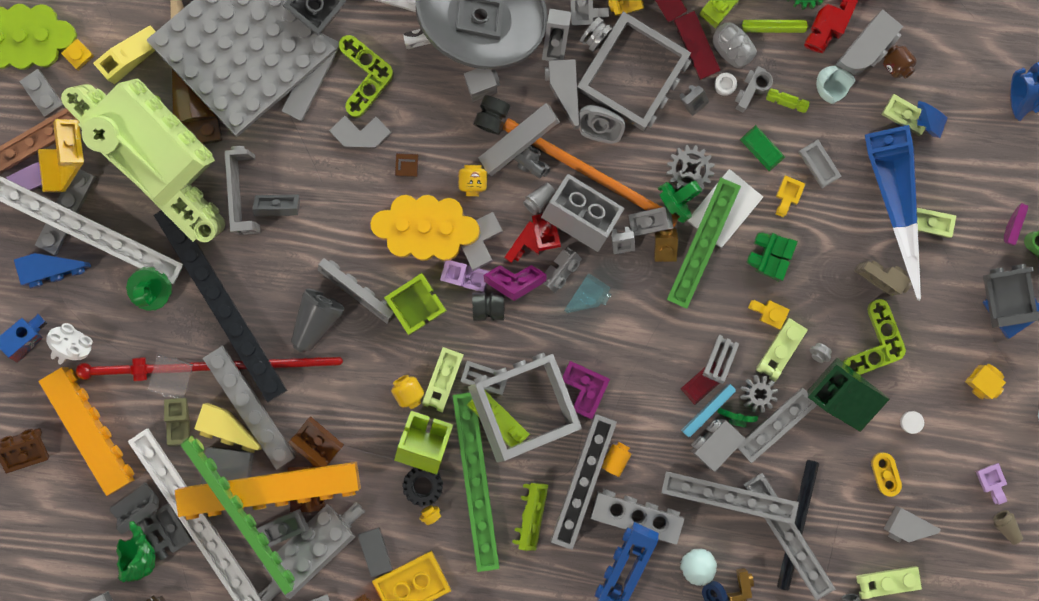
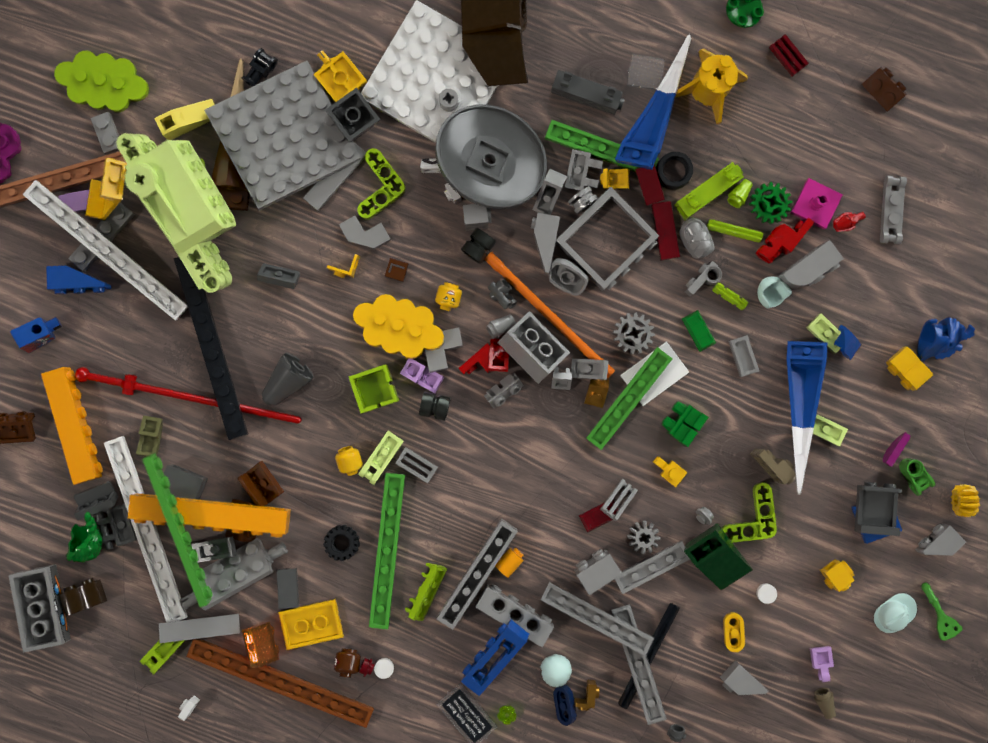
camera: 10 degrees right, 0 degrees up
(68, 343) = (74, 348): white plate -> none
(77, 54) = (145, 108): yellow plate -> none
(148, 288) = (153, 319): green tile -> none
(170, 377) = (153, 398): clear piece -> none
(223, 424) = (186, 448): light yellow slope -> none
(237, 226) = (245, 255): light grey panel -> none
(249, 407) = (212, 440): light grey plate -> none
(346, 184) = (342, 273): none -> yellow bracket
(349, 285) = (322, 358): light grey plate -> none
(422, 448) = (348, 511): lime piece -> none
(430, 514) = (341, 568): yellow plate -> none
(447, 64) = (451, 194): none -> white plate
(489, 422) = (413, 533): light grey window -> none
(510, 429) = (418, 503): lime plate -> none
(517, 284) = (462, 394): magenta plate -> none
(518, 139) = (495, 272): light grey tile -> none
(589, 295) = (521, 418): clear light blue slope -> none
(591, 388) = (504, 495): magenta plate -> none
(677, 201) = (614, 357): green tile -> none
(694, 100) = (652, 276): flat silver tile -> none
(708, 410) = (597, 540): medium azure tile -> none
(725, 84) = (681, 269): white tile -> none
(737, 419) = (620, 554): green animal -> none
(782, 349) = (672, 504): yellowish green plate -> none
(790, 192) = (712, 374): yellow plate -> none
(889, 582) = (713, 723): yellowish green plate -> none
(899, 62) = (832, 287): reddish brown head -> none
(1007, 131) = (909, 369): none -> yellow brick

